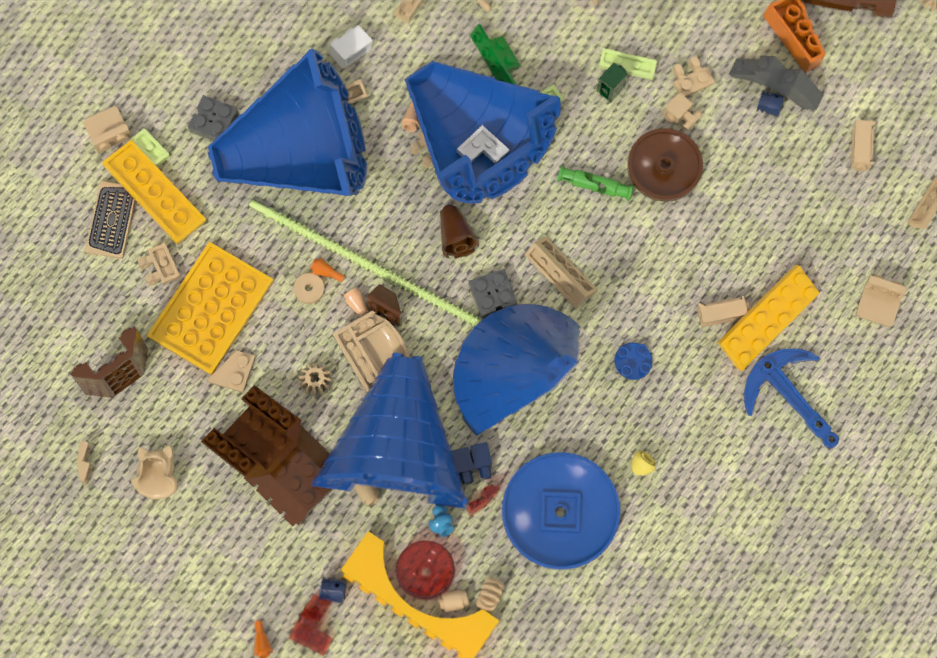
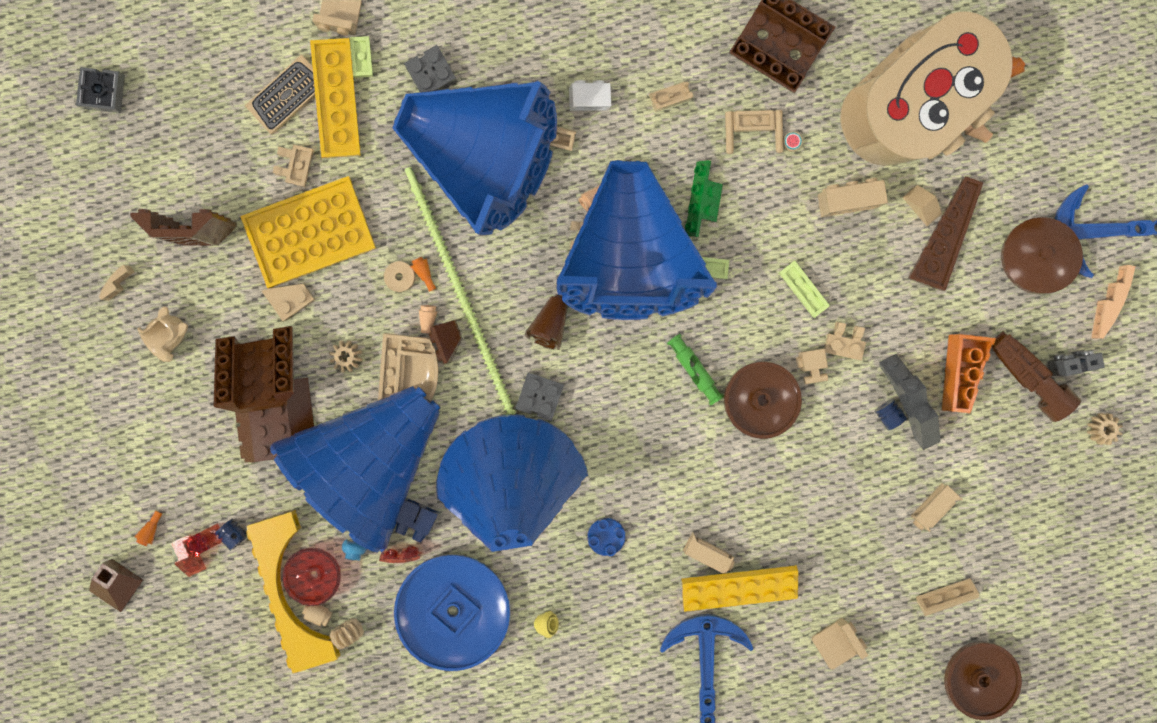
camera: 40 degrees right, 15 degrees up
(483, 142) = (632, 265): white plate -> none
(559, 273) = (605, 421): tan fence -> none
(612, 82) = (777, 297): dark green brick -> none

